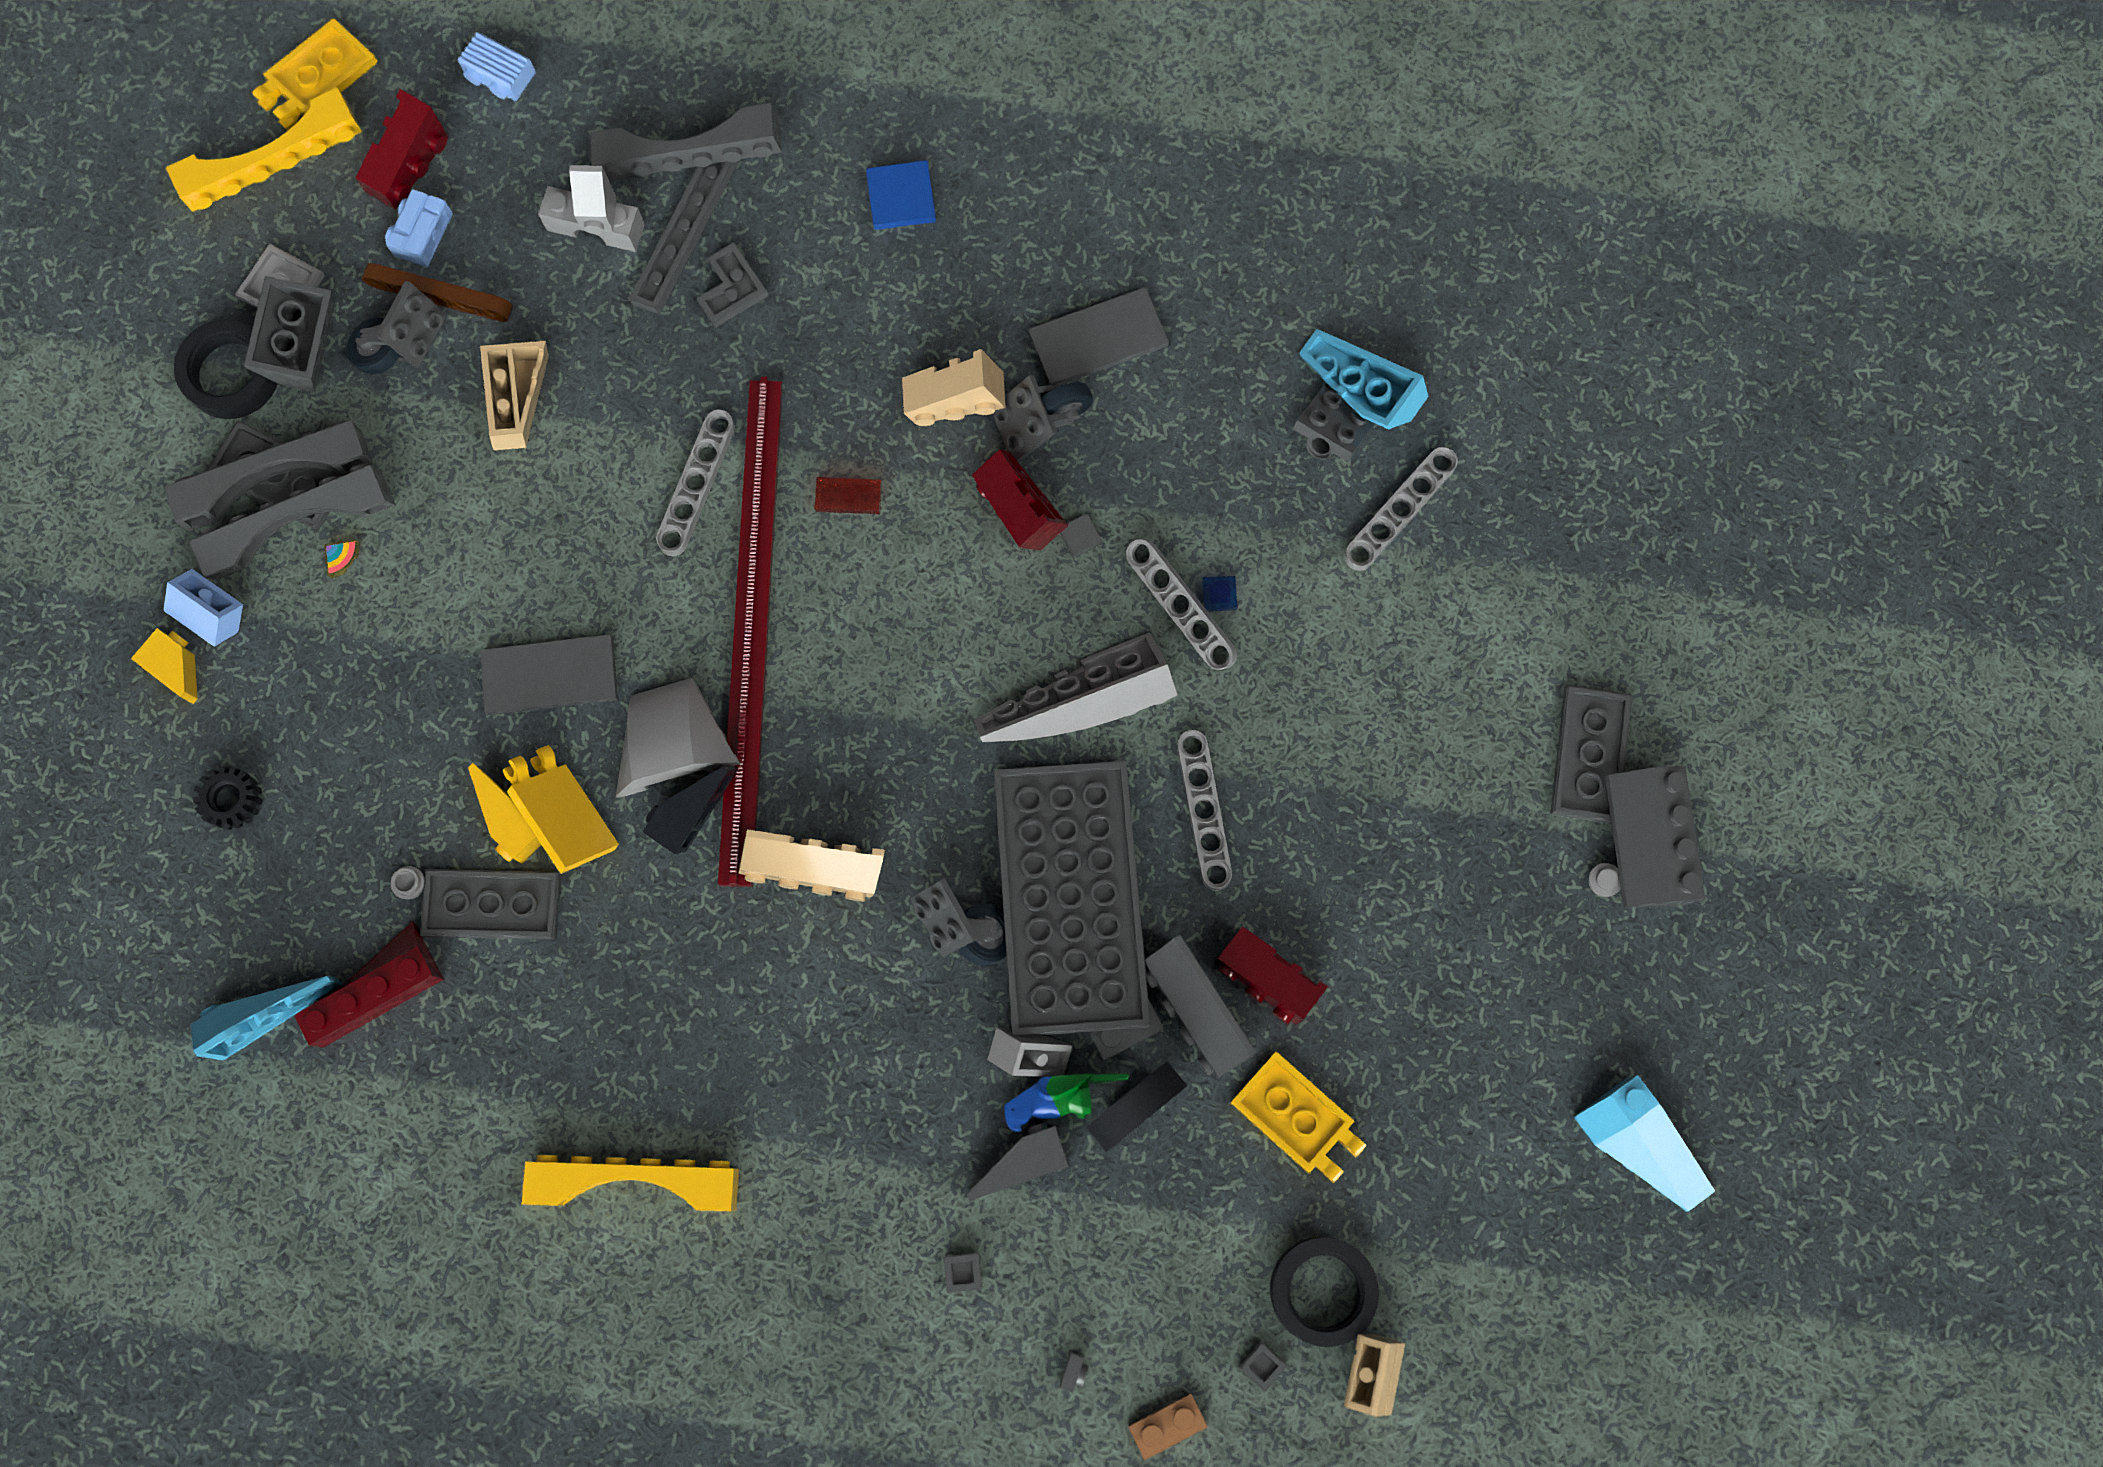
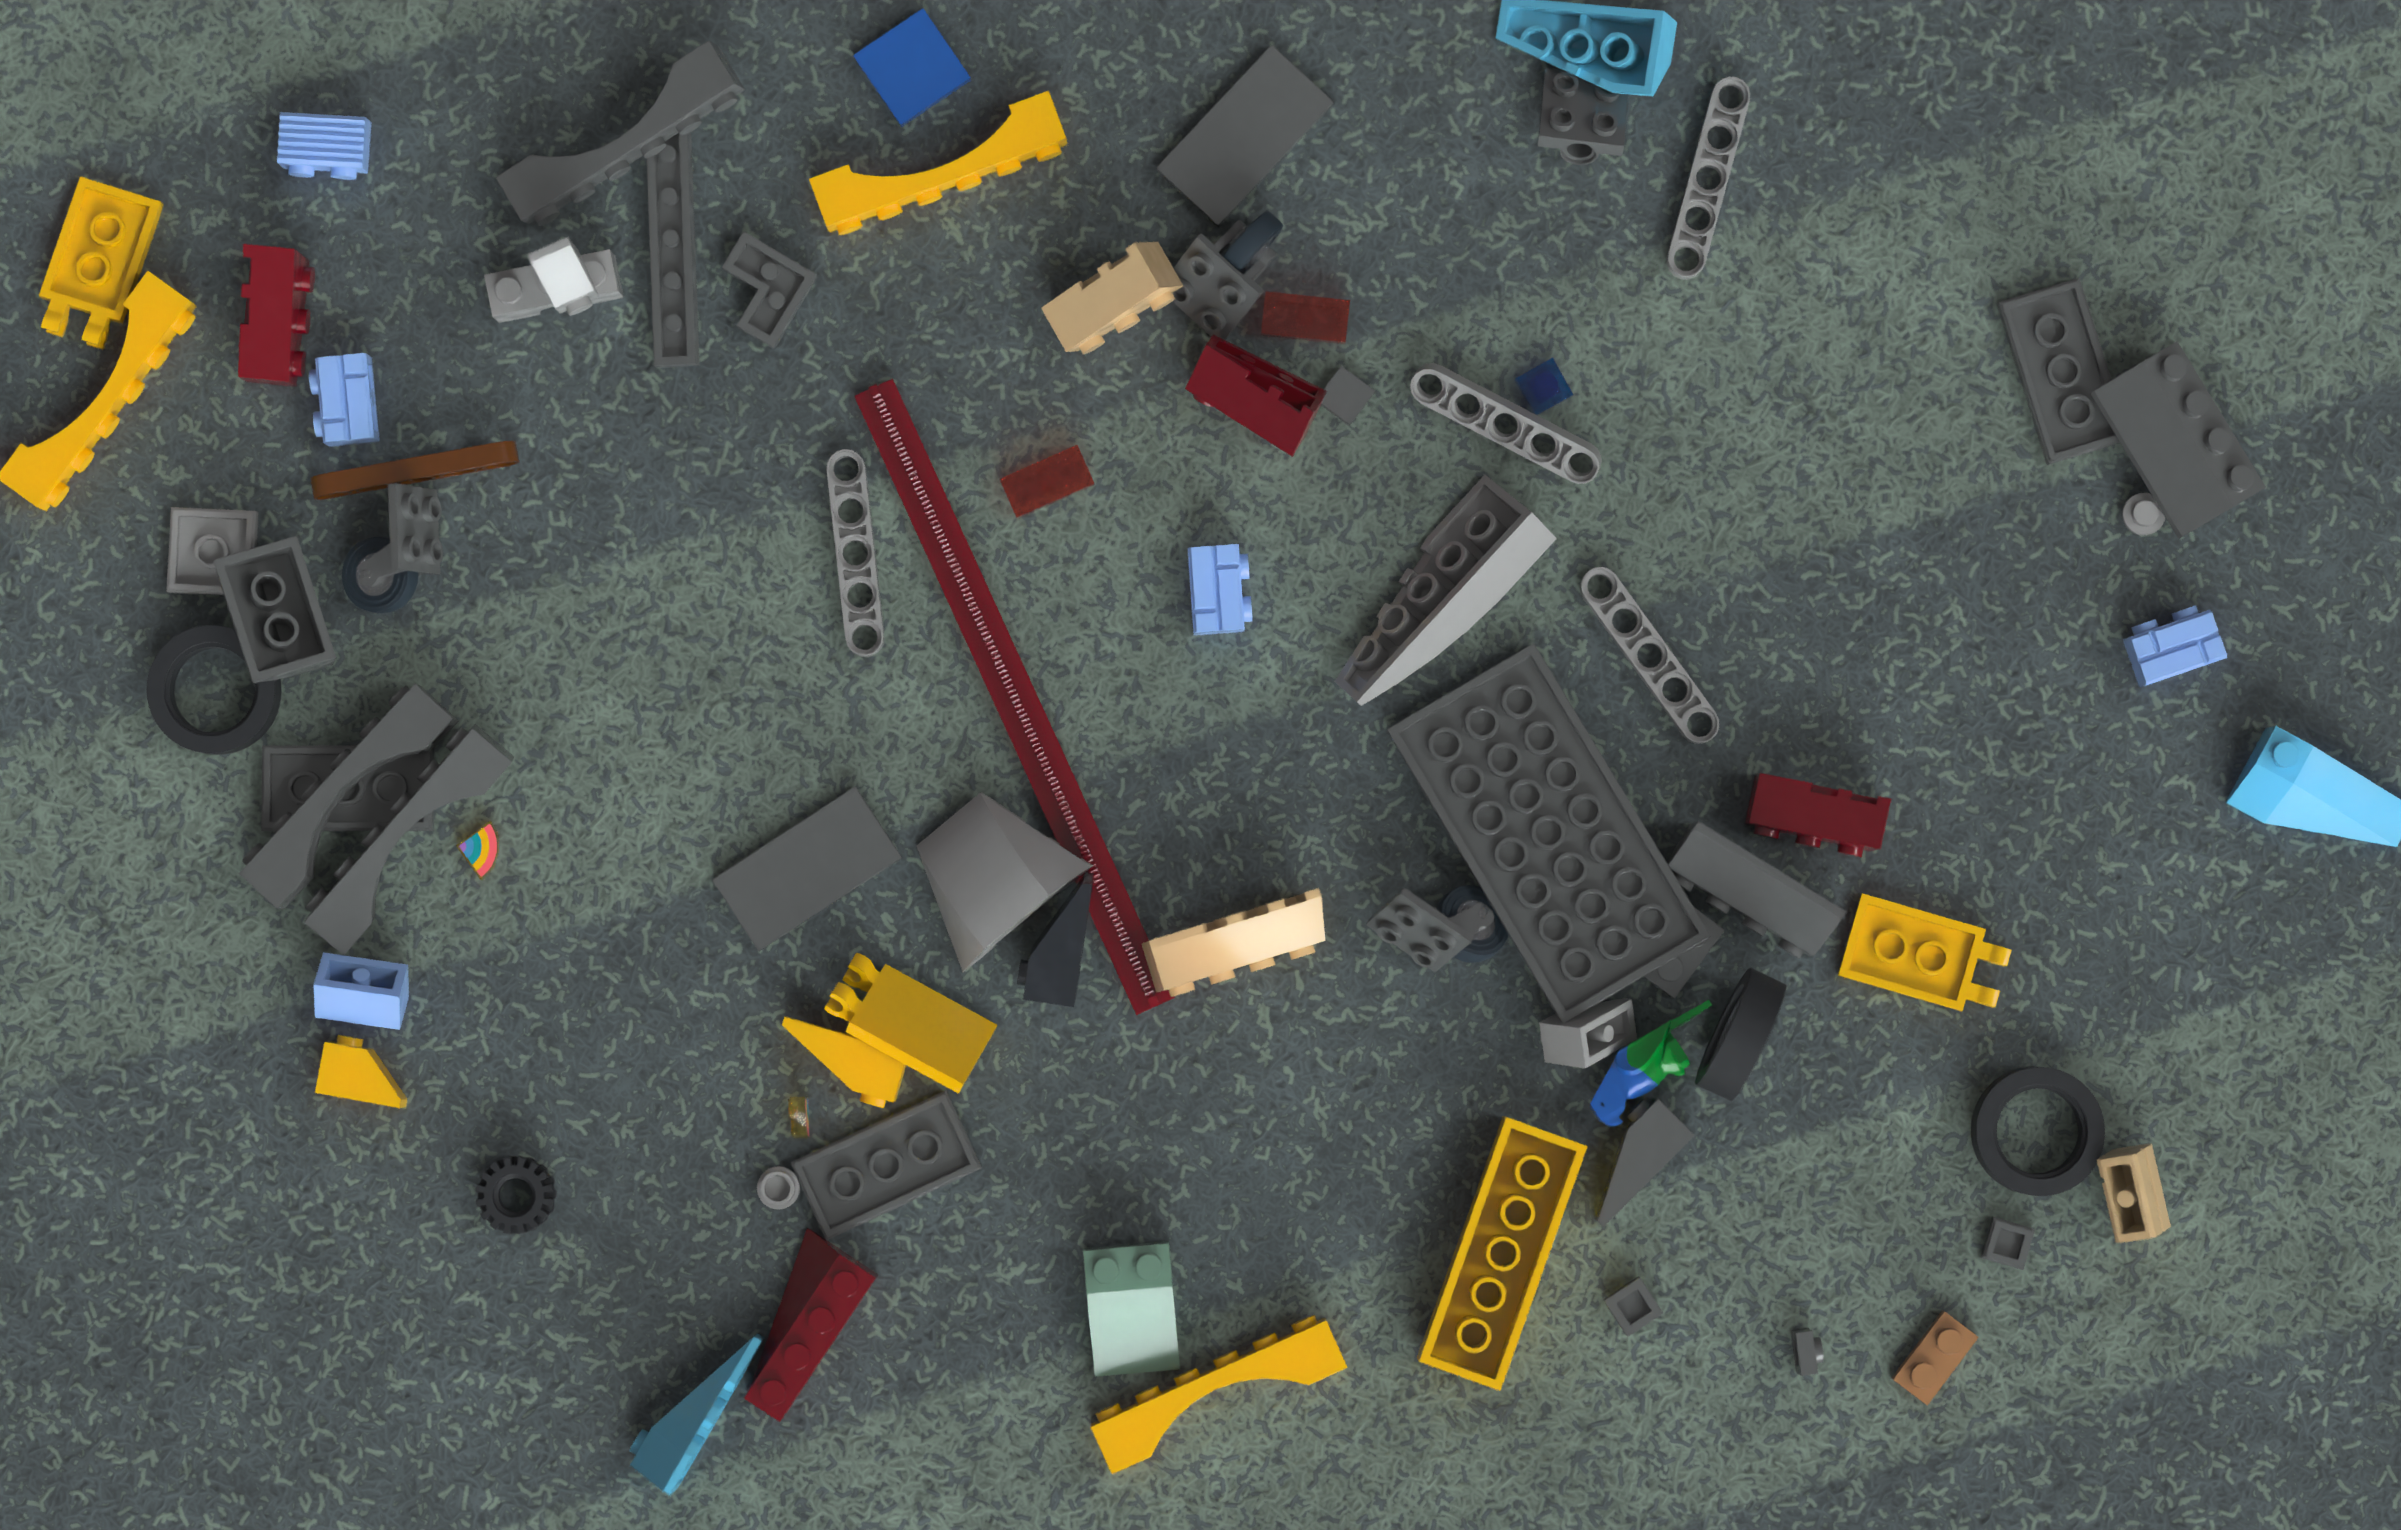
camera: 30 degrees left, 10 degrees up
(452, 835) = (799, 1115): none -> clear yellow tile
(512, 389) = (577, 551): tan wedge -> none
(603, 1090) = (1131, 1308): none -> slope
(884, 1184) = (1501, 1253): none -> yellow brick
(925, 620) = (1217, 589): none -> light blue brick
(949, 267) = (852, 197): none -> yellow arch
(1078, 470) = (1305, 317): none -> clear red plate
(1586, 984) = (2174, 647): none -> light blue brick

